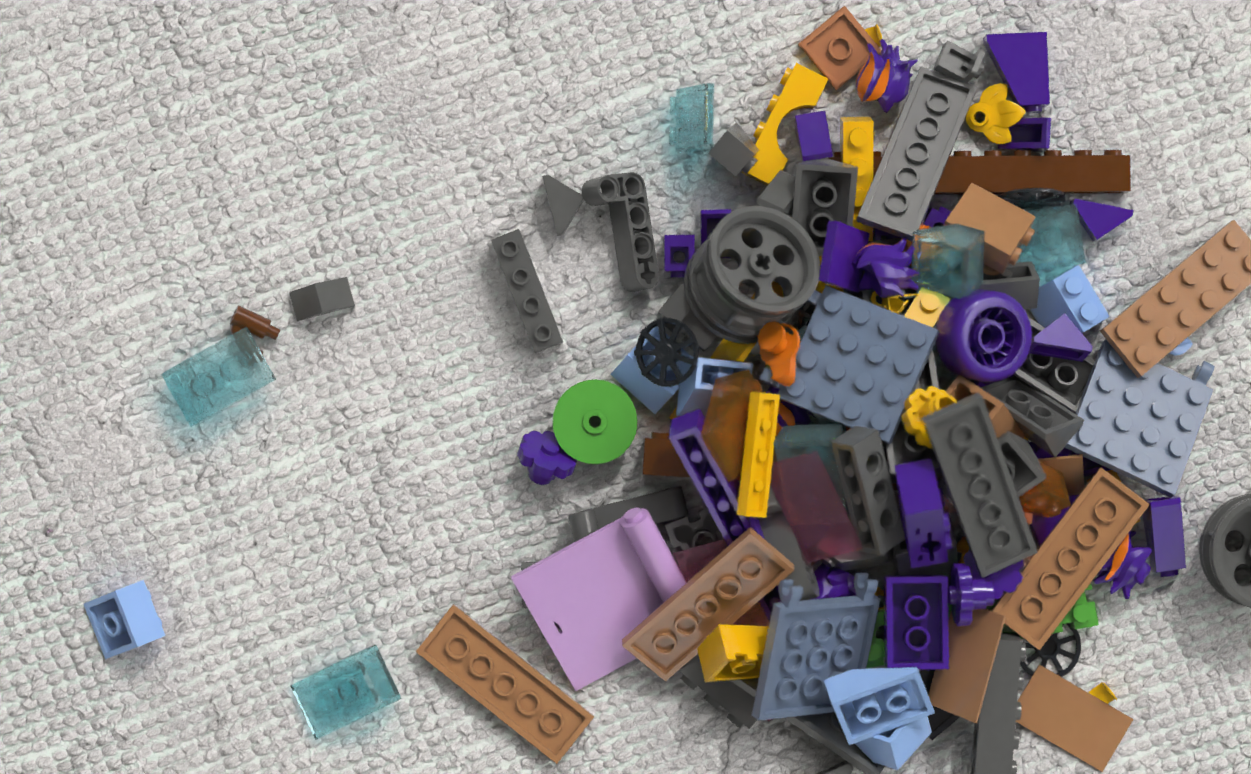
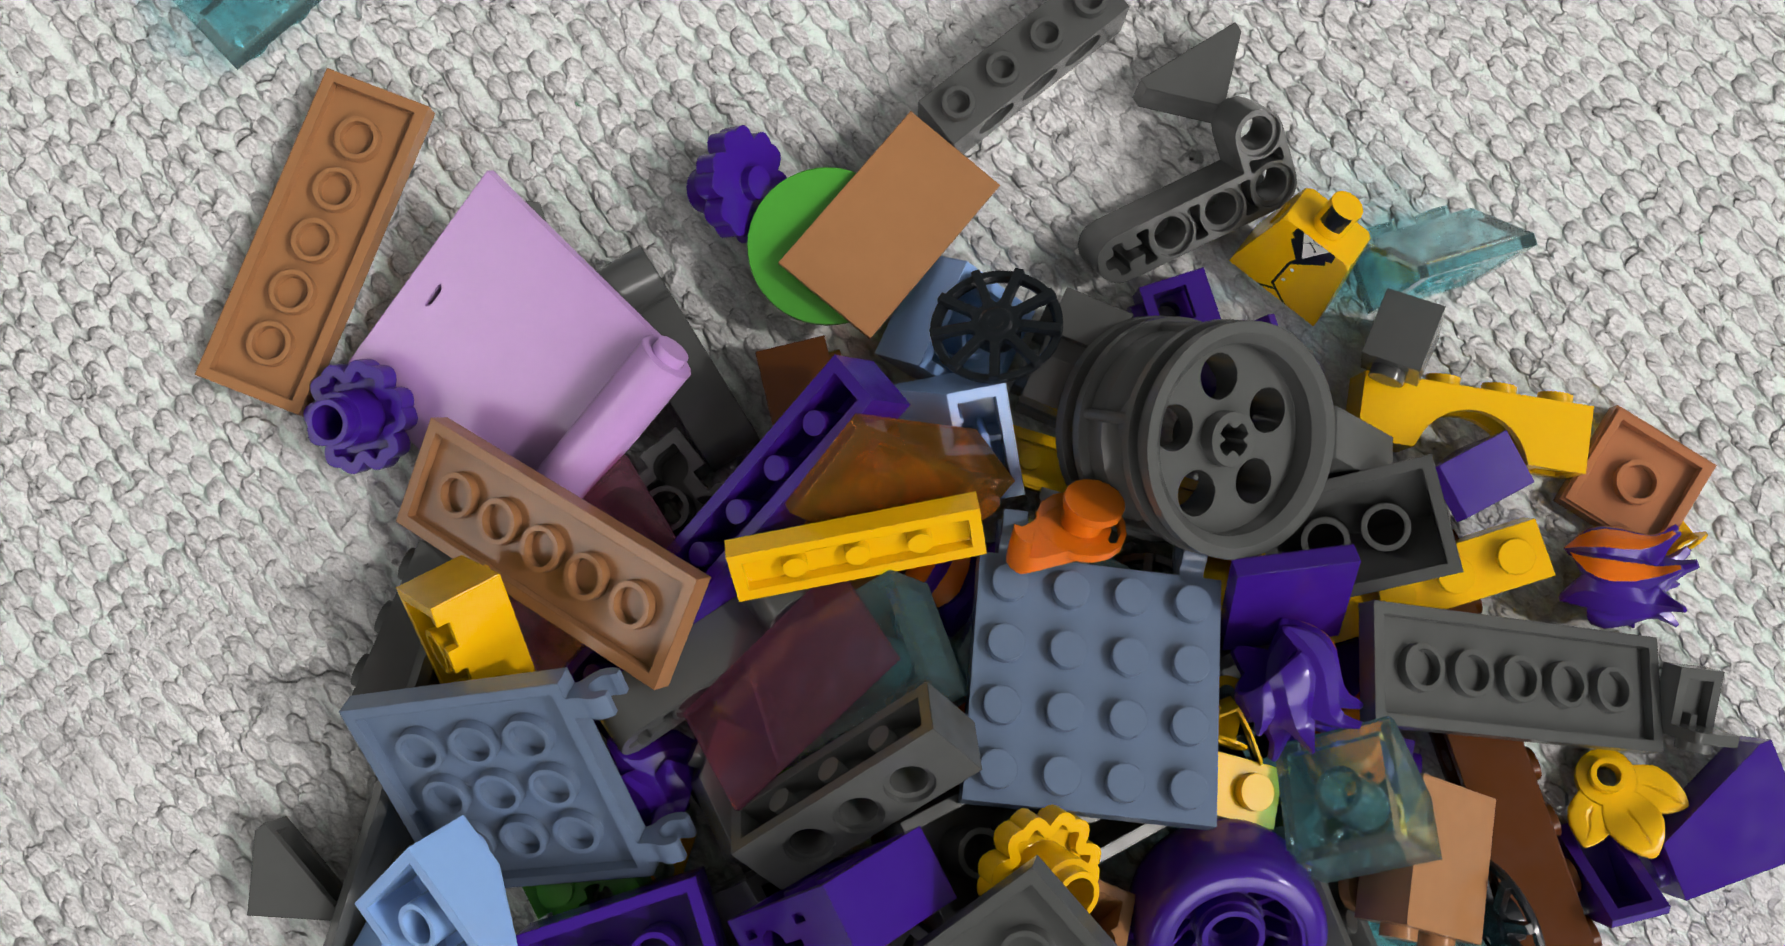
camera: 75 degrees right, 5 degrees down
(594, 386) = (889, 225): none -> medium nougat piece
(604, 685) = (360, 416): none -> dark purple plant
(672, 181) = (1305, 250): none -> yellow torso

